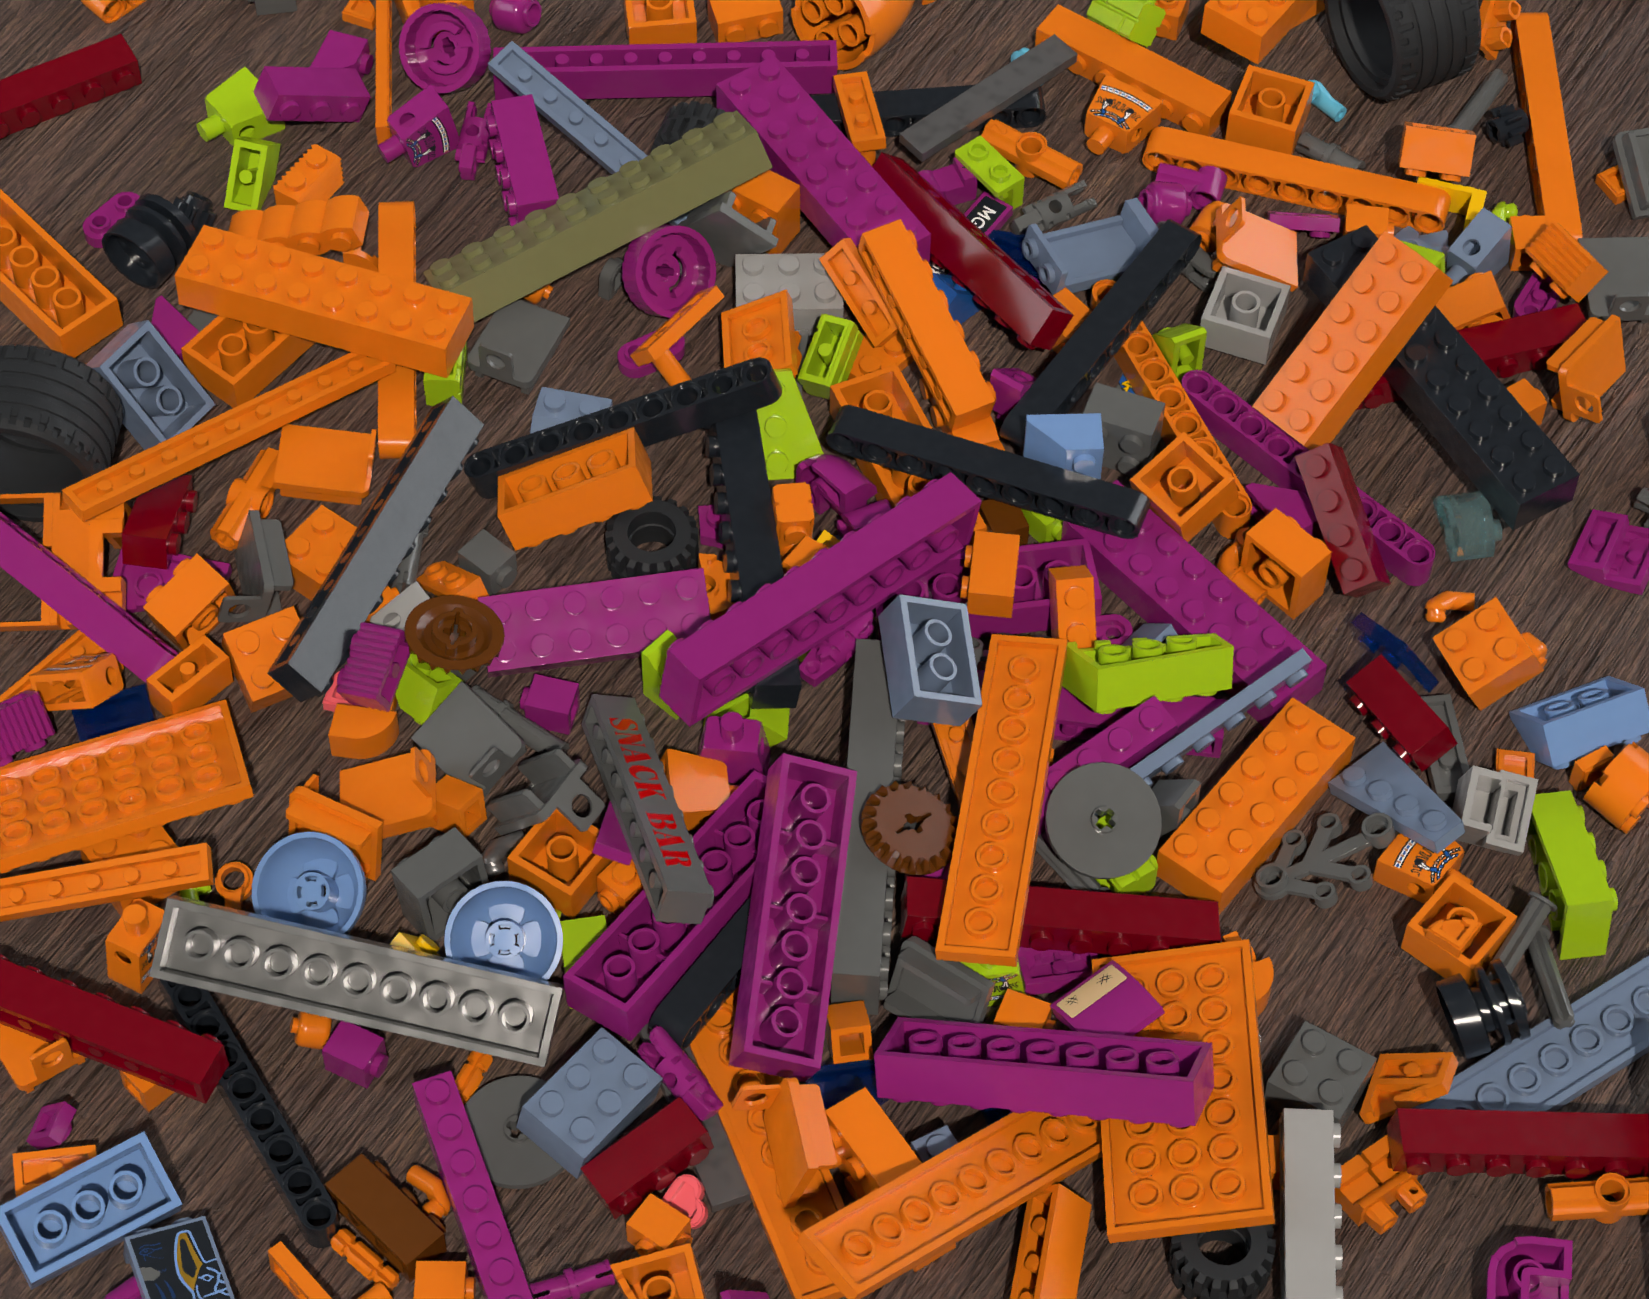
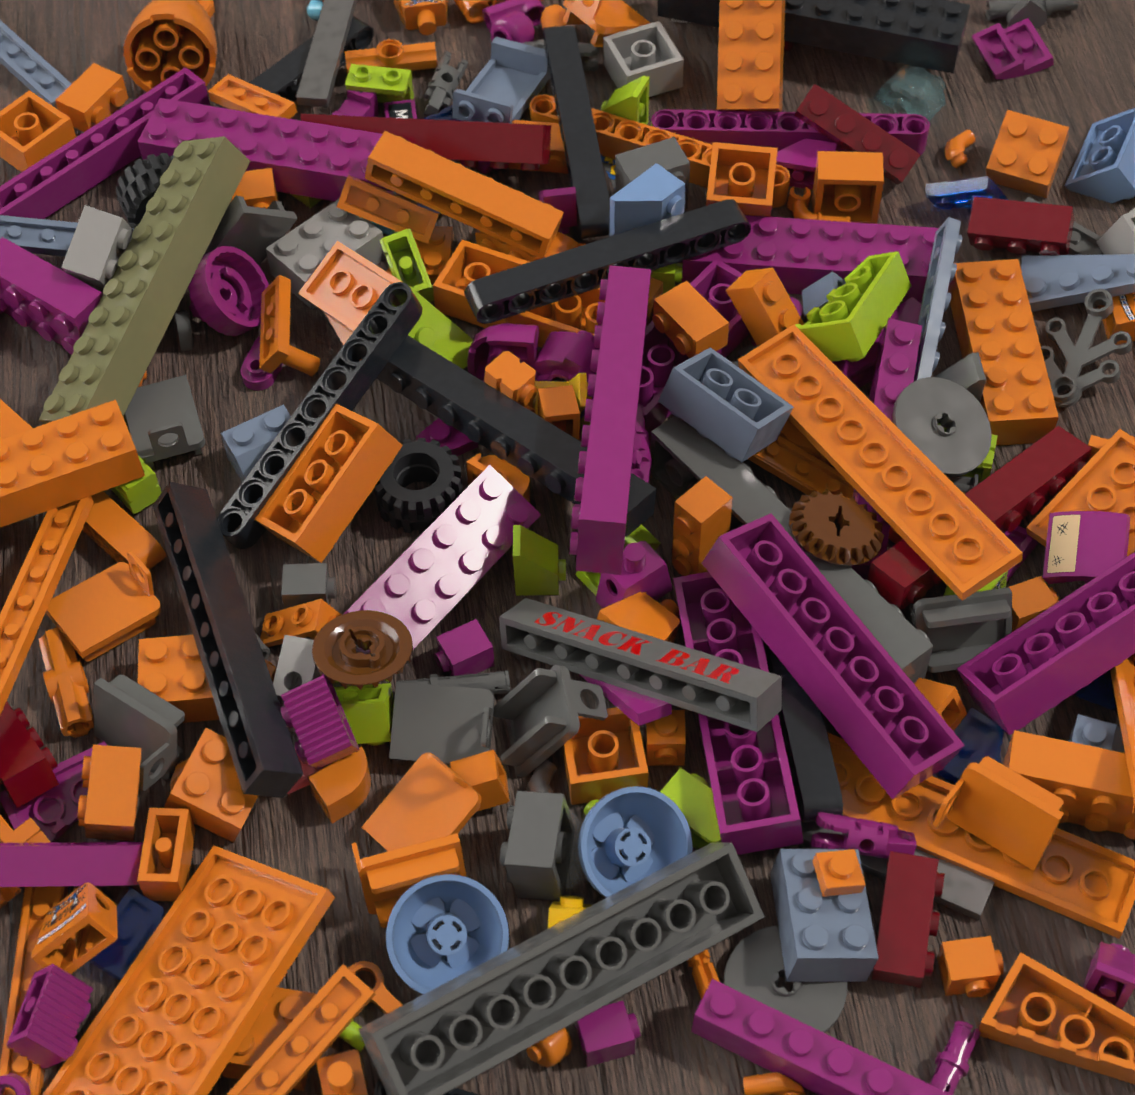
camera: 40 degrees left, 0 degrees up
(588, 154) = (97, 247): none -> light grey brick
(618, 1075) = (838, 872): none -> orange plate
(686, 1197) = (958, 925): coral tile -> none
(813, 732) = (699, 520): none -> orange brick
(1515, 761) = (1106, 214): orange tile -> none

